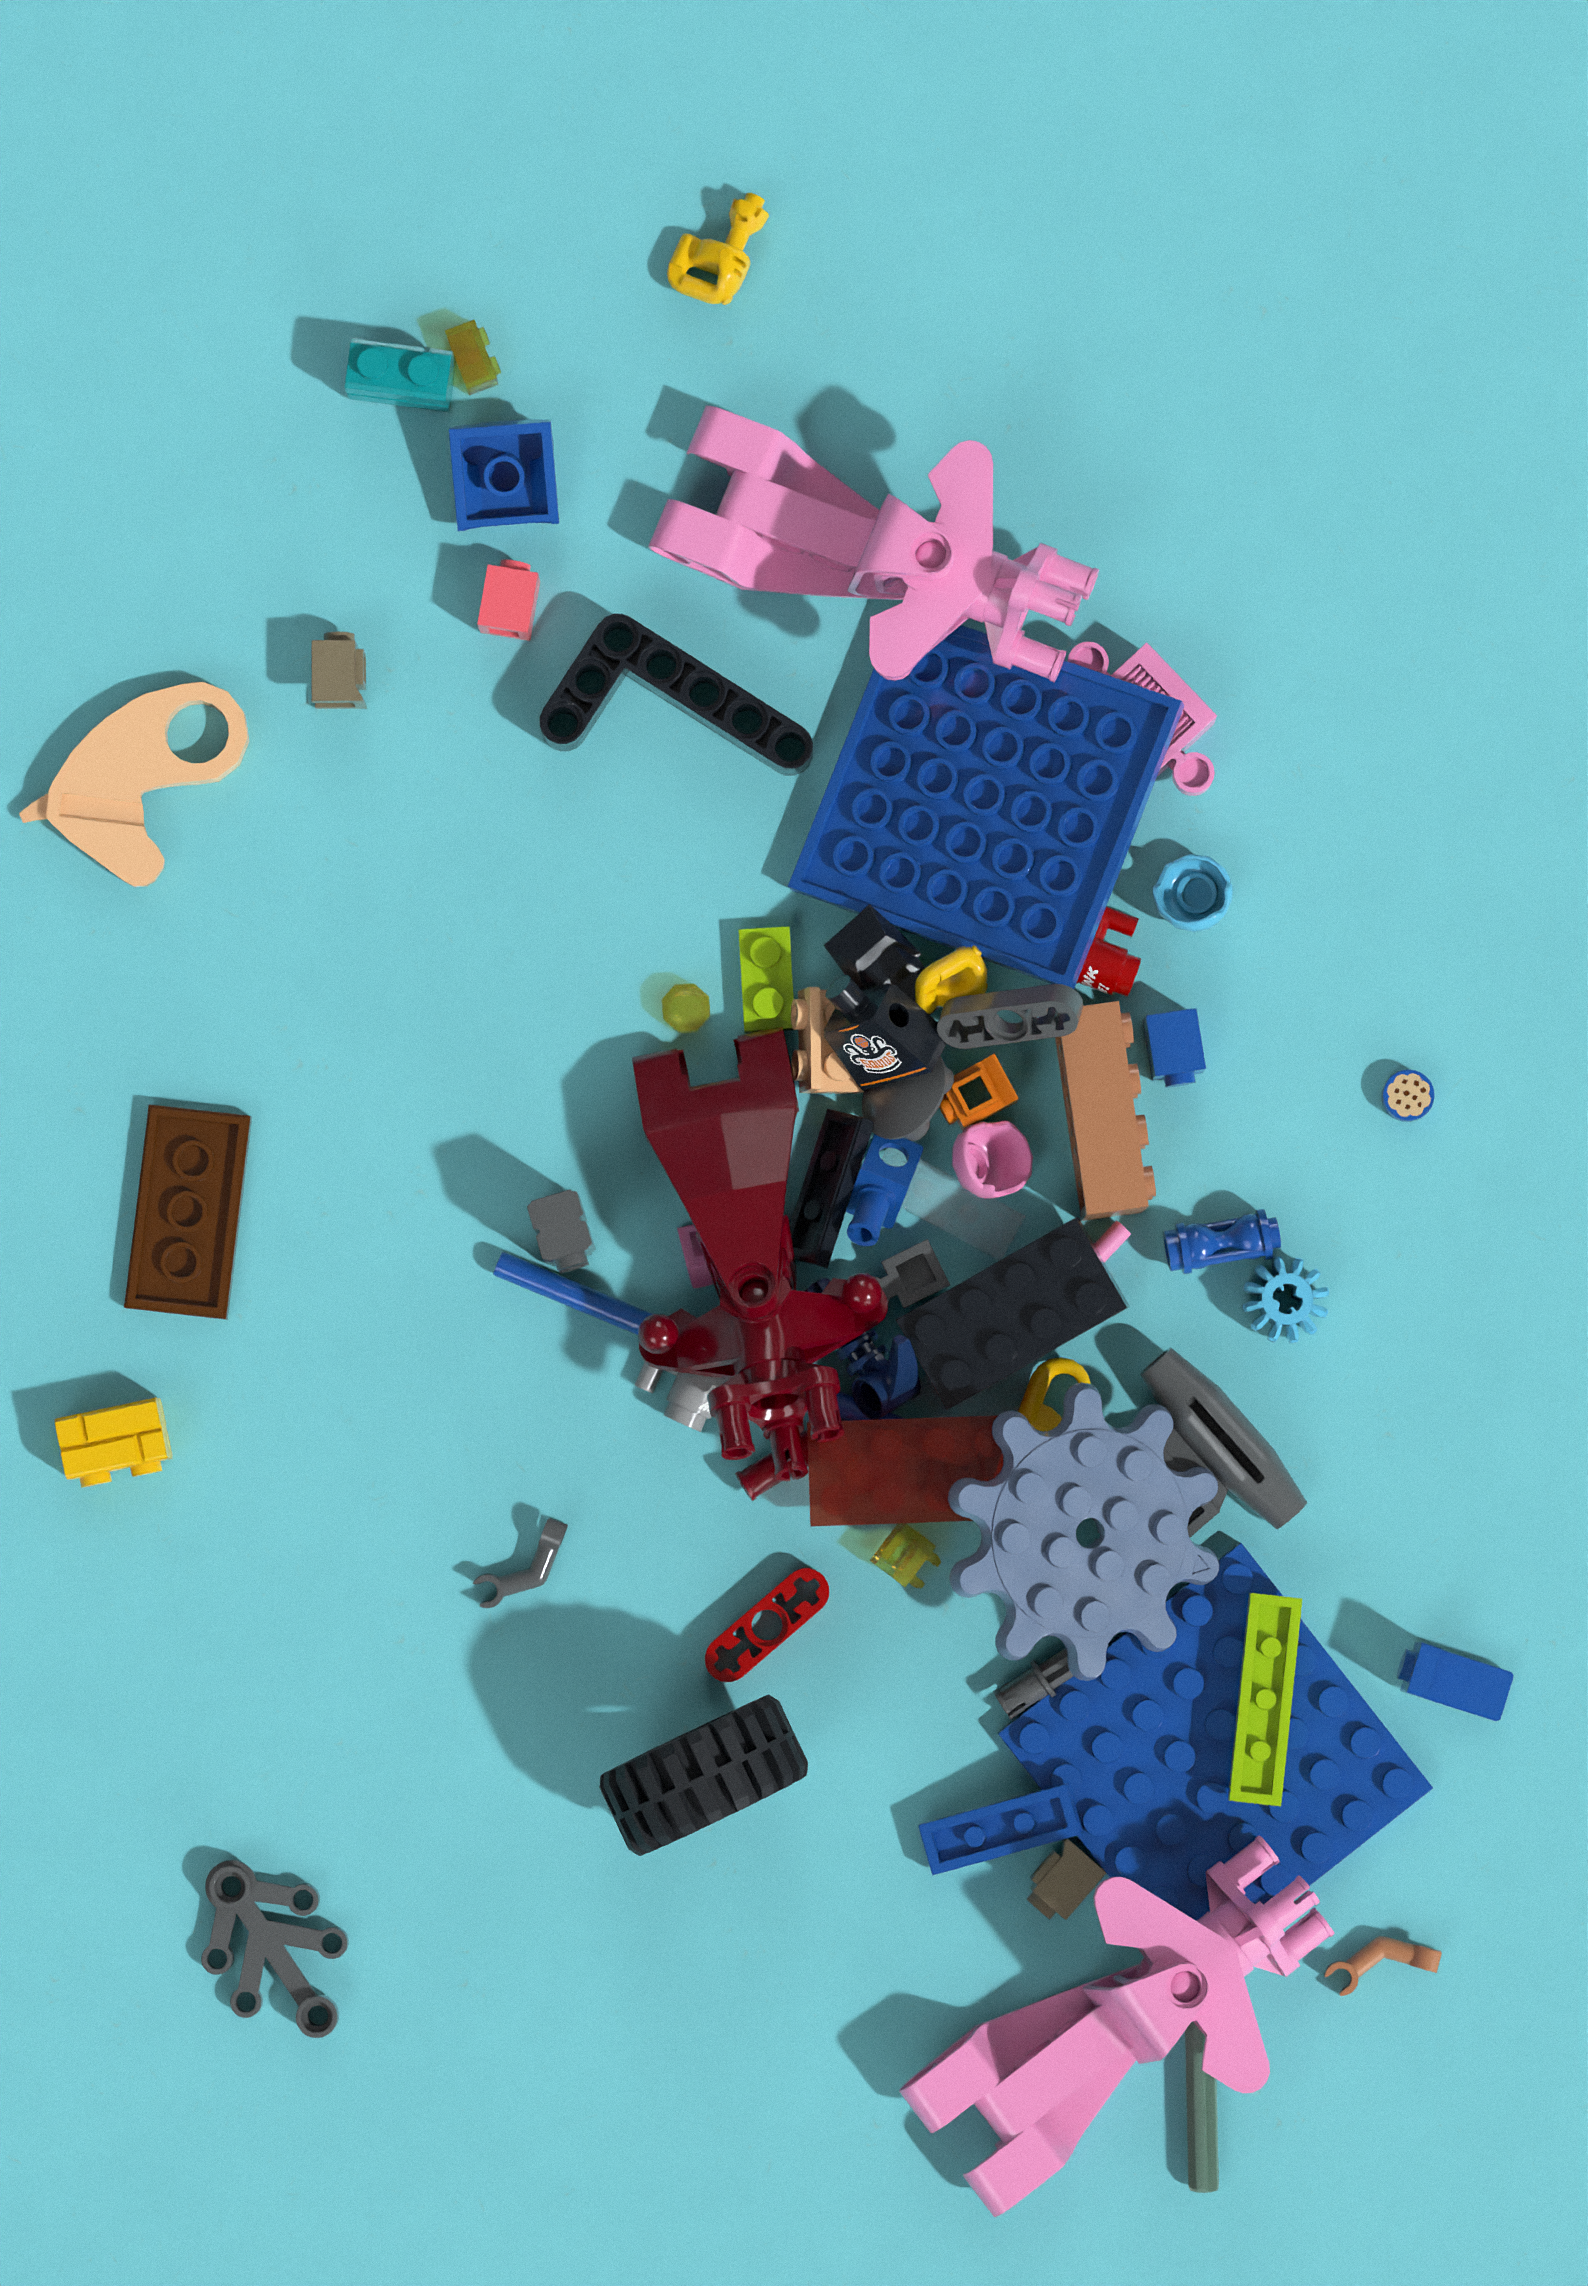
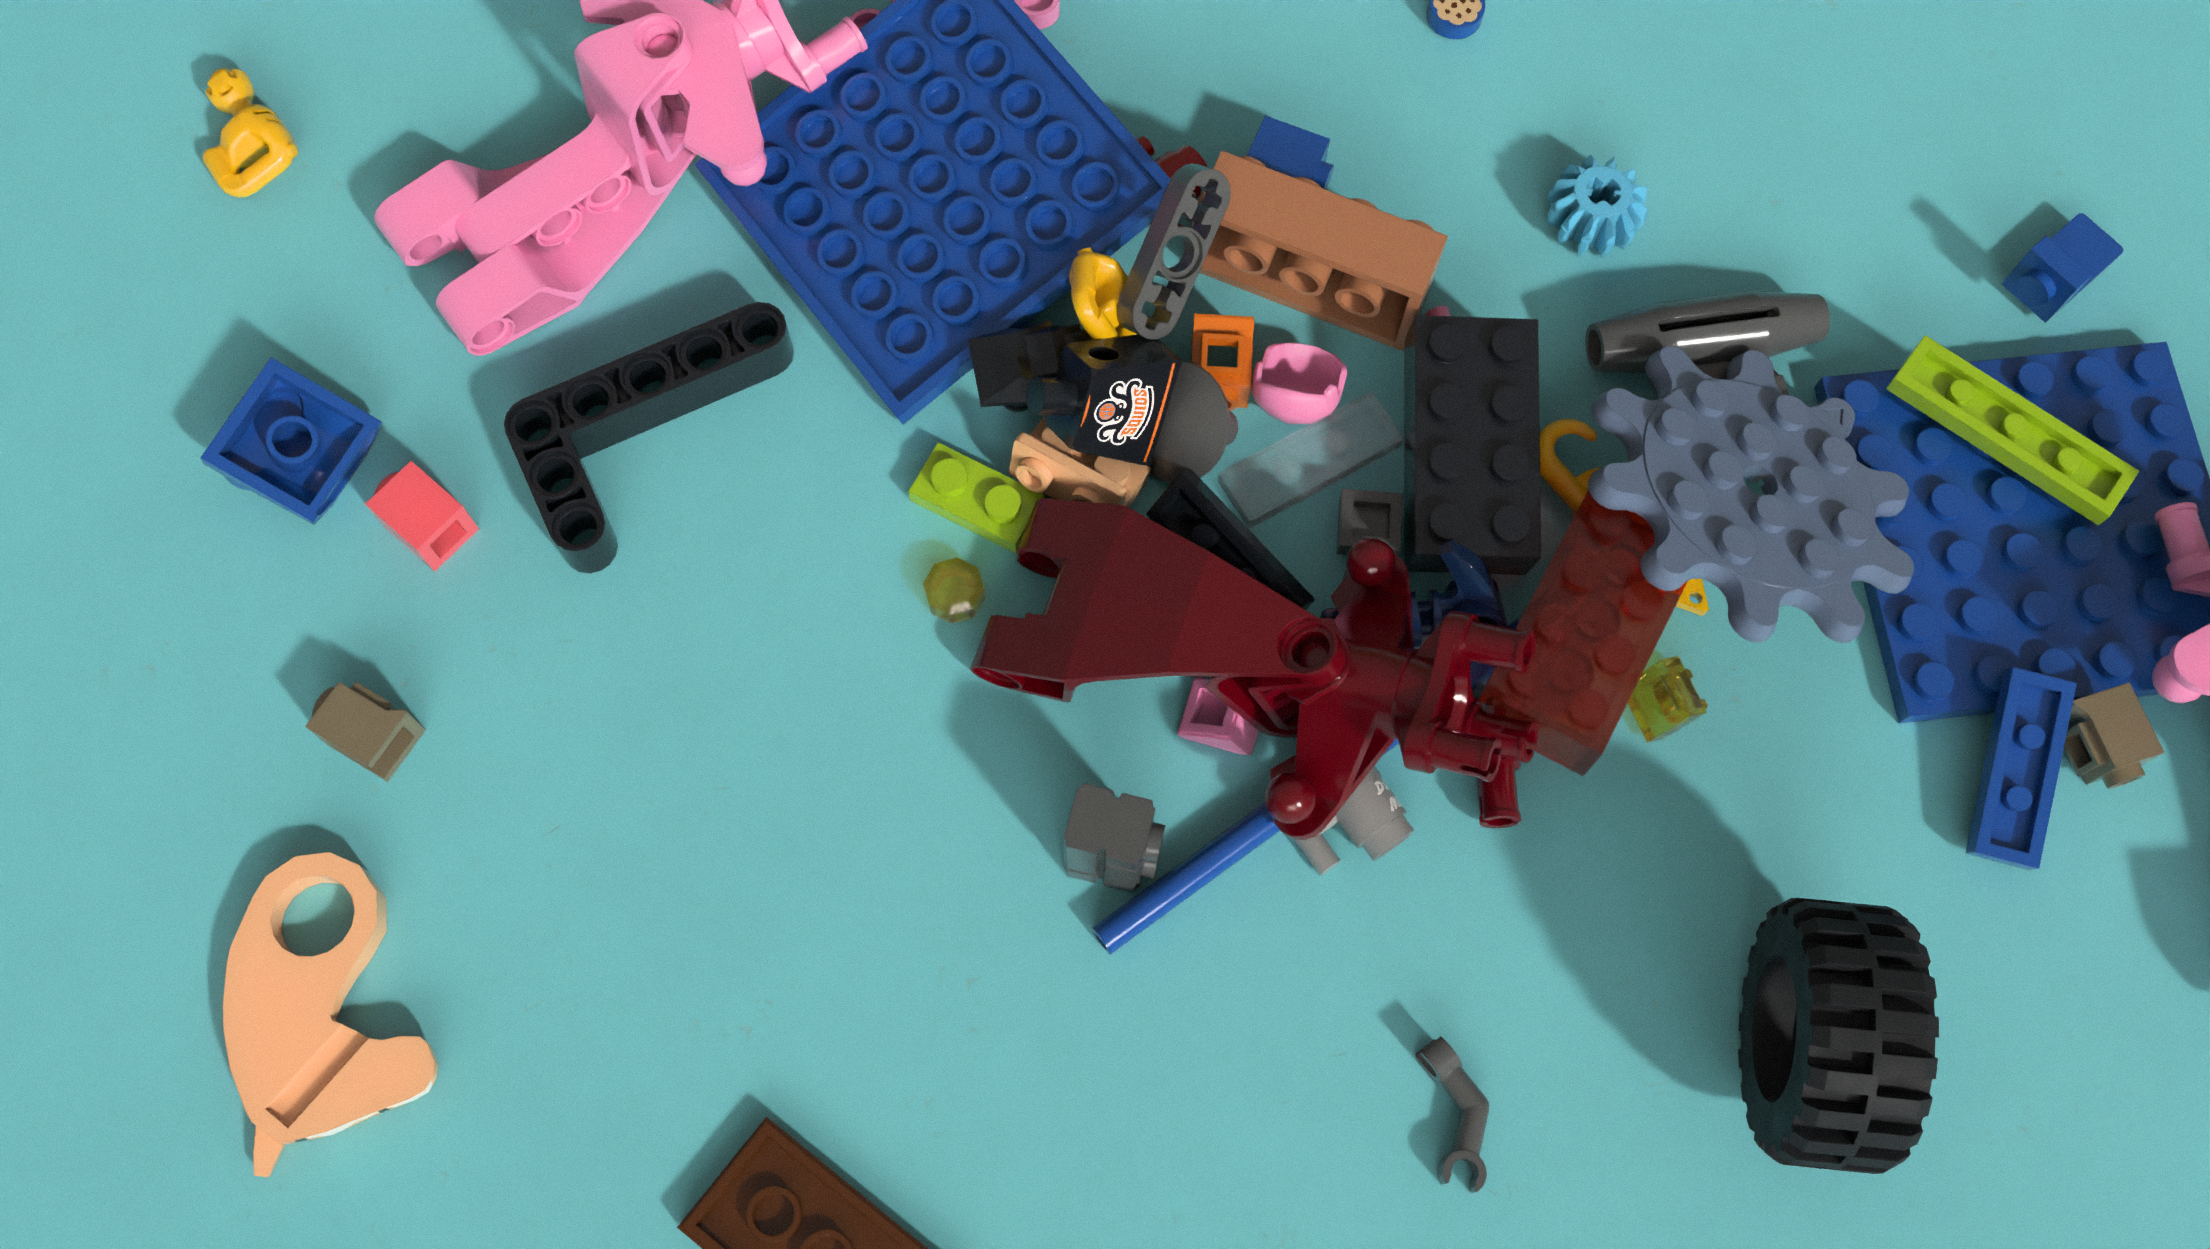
camera: 60 degrees left, 15 degrees down
(400, 375) = (116, 484): teal brick -> none
(471, 356) = (159, 412): clear yellow piece -> none
(746, 1660) = (1690, 931): red beam -> none
(880, 1190) = (1265, 500): blue bracket -> none
(1034, 1684) = (1873, 647): dark grey axle -> none
(1193, 892) = (1150, 70): medium azure hair -> none
(1204, 1245) = (1498, 251): blue piece -> none

